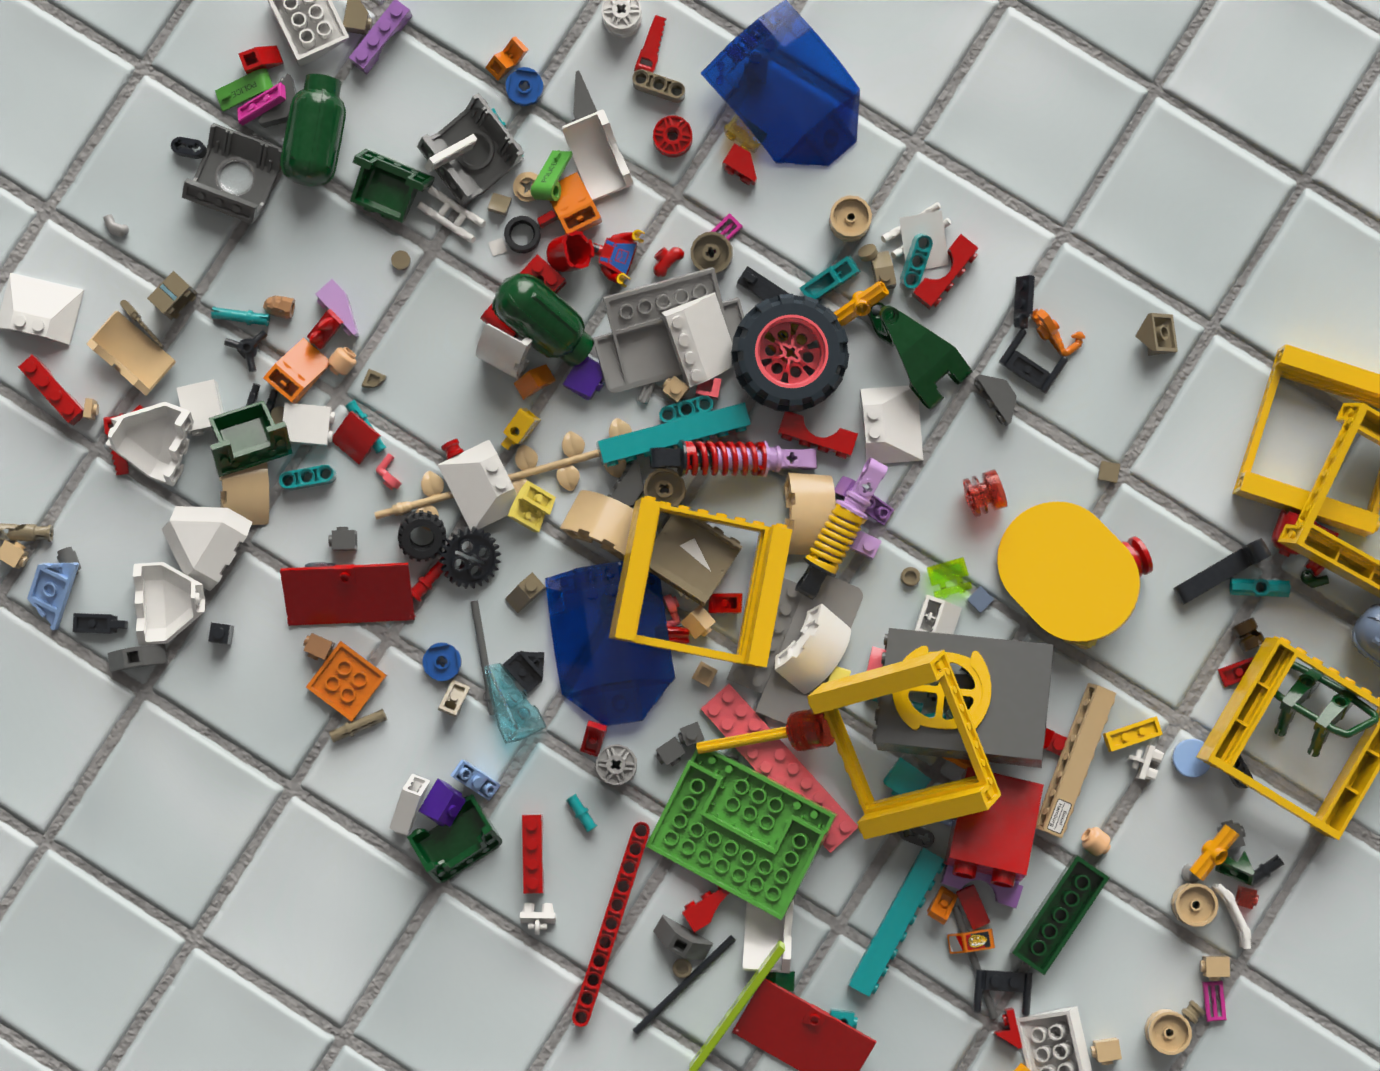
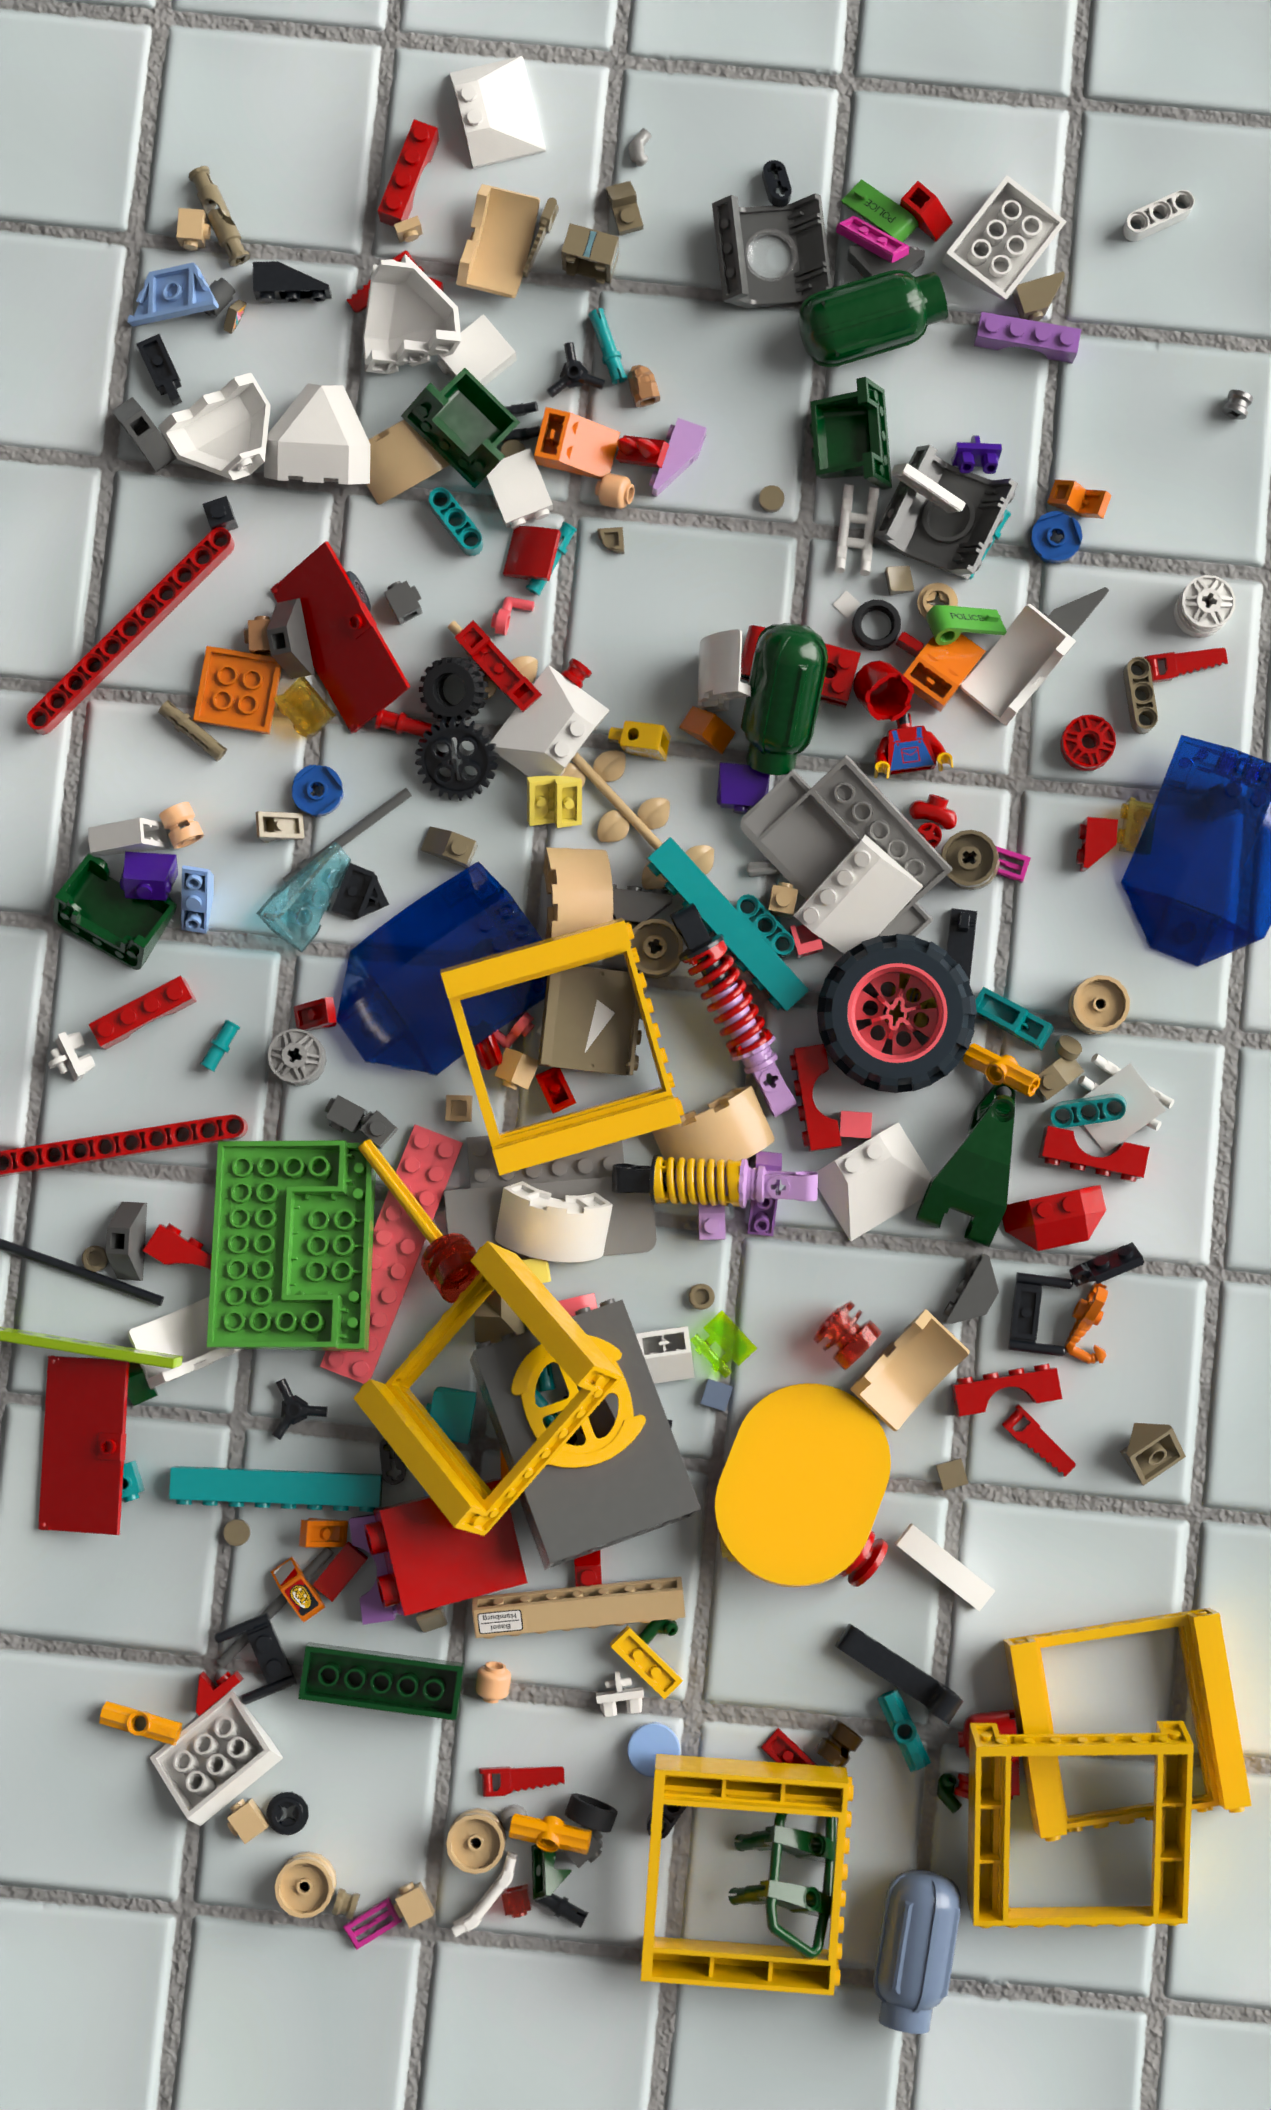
camera: 55 degrees right, 0 degrees up
(81, 512) = (280, 282): none -> black slope
(87, 556) = (234, 316): none -> dark tan tile
(151, 257) = (624, 207): none -> dark tan slope
(275, 740) = (129, 643): none -> red beam
(331, 628) = (289, 639): none -> dark grey slope
(382, 642) = (304, 708): none -> clear yellow bracket
(413, 768) = (177, 817): none -> light nougat wheel
(422, 498) = (497, 666): none -> red slope
(441, 110) = (976, 454): none -> dark purple hips
(680, 269) = (931, 832): none -> red wheel
(848, 417) = (855, 1124): none -> coral panel
(850, 884) = (294, 1409): none -> black piece
(859, 718) = (496, 1320): none -> dark tan slope
(912, 963) = (237, 1532): none -> dark tan tile
(976, 318) = (1056, 1218): none -> red wedge
(1027, 464) = (909, 1369): none -> tan panel
(1035, 862) = (431, 1619): none -> dark tan slope
(1065, 431) = (973, 1396): none -> red arch
(1113, 715) = (658, 1627): none -> dark green arm
(1115, 404) = (1039, 1441): none -> red piece
(1123, 1024) = (287, 1826): none -> black gear
(1167, 507) = (944, 1567): none -> white slope
(1167, 855) = (520, 1778): none -> red piece
(1213, 819) = (591, 1813): none -> black tyre

